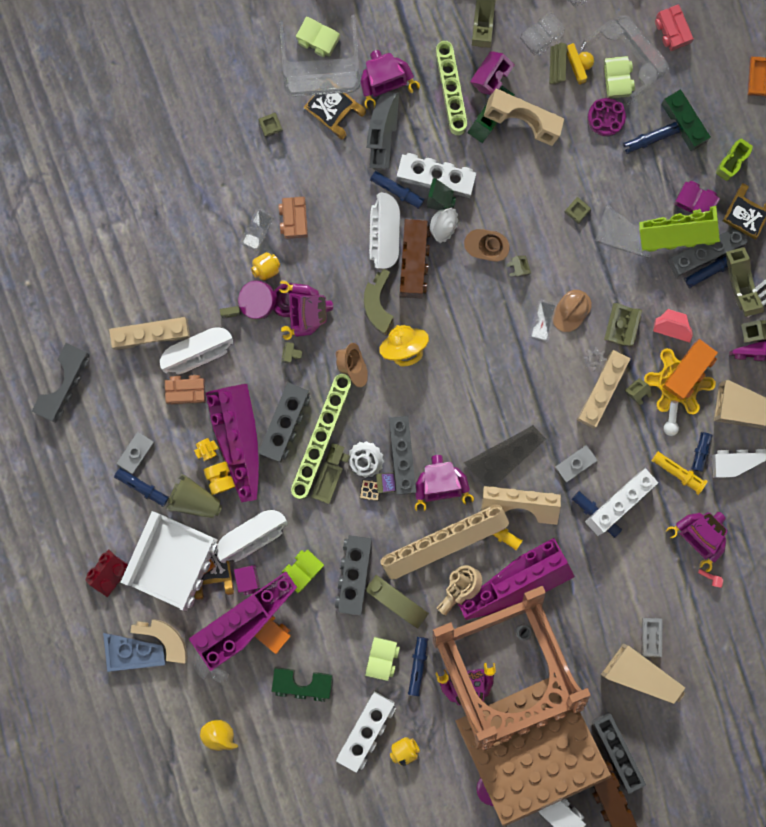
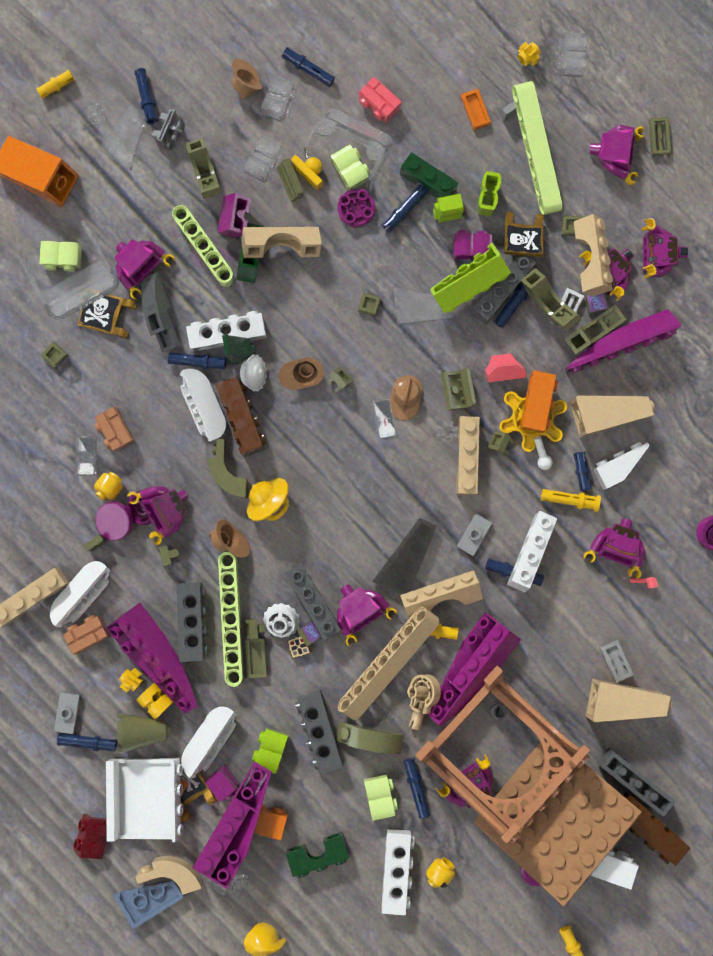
camera: 25 degrees left, 0 degrees up
(690, 156) = (448, 208): none -> lime brick

